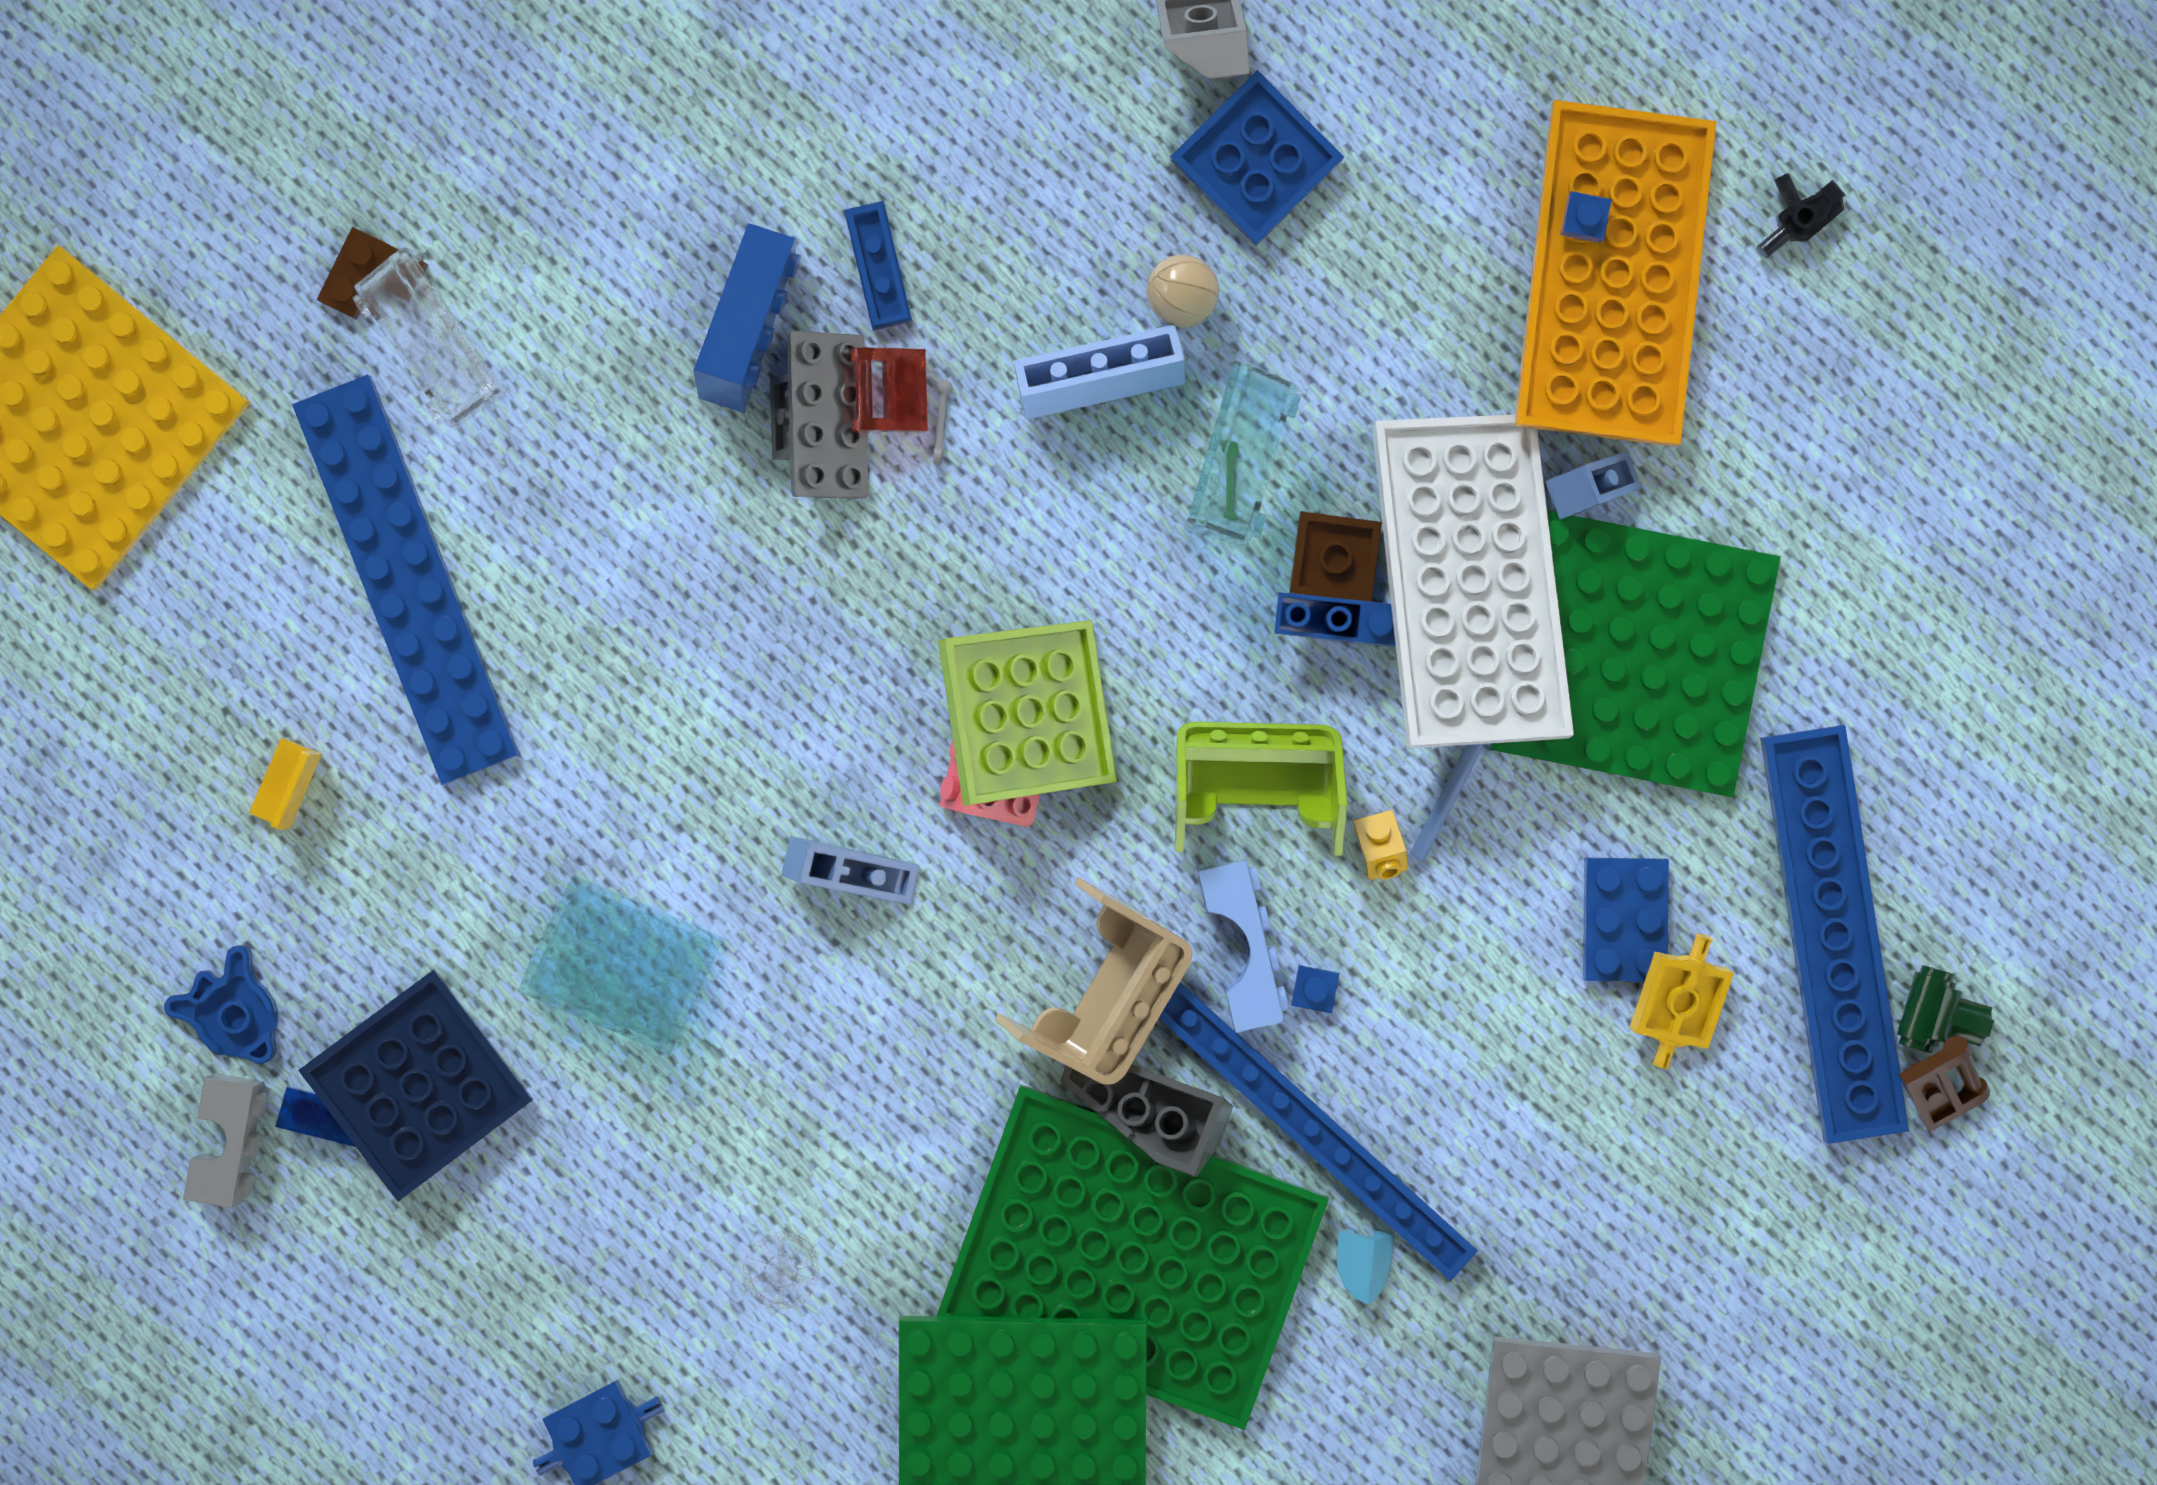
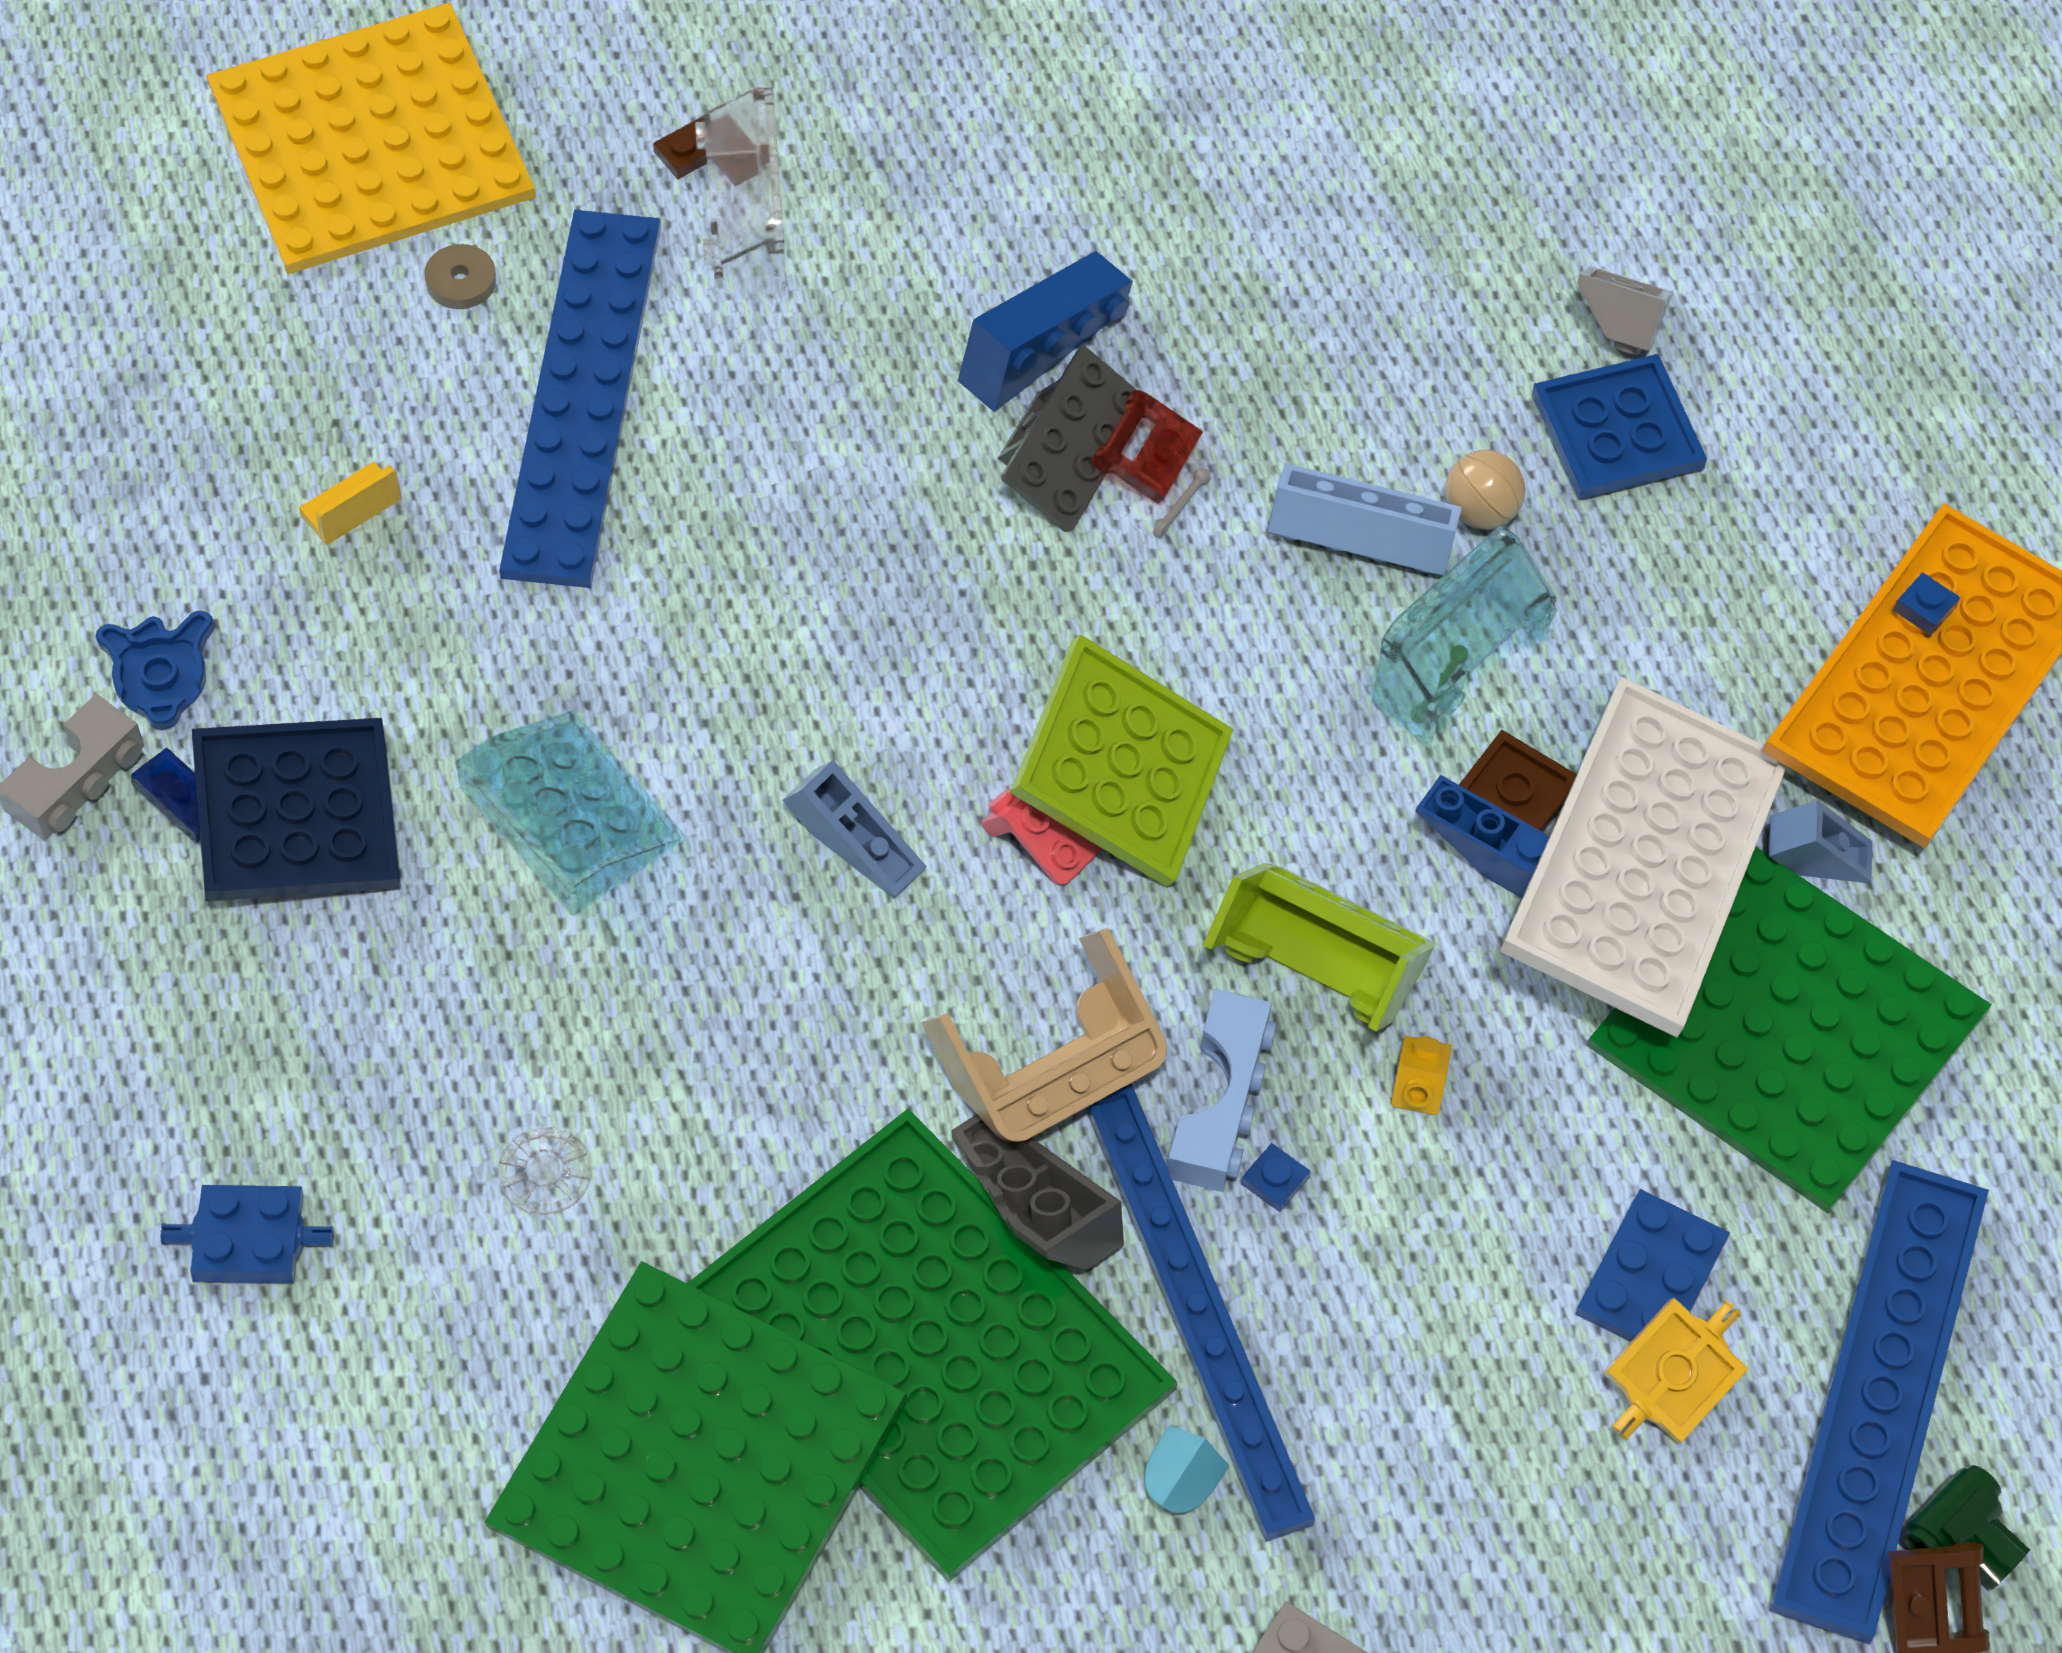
camera: 25 degrees right, 30 degrees down
(220, 513) = (463, 292): none -> dark tan piece
(878, 265) = (1197, 352): blue tile -> none
(1446, 801) = (1529, 1058): medium blue bar -> none

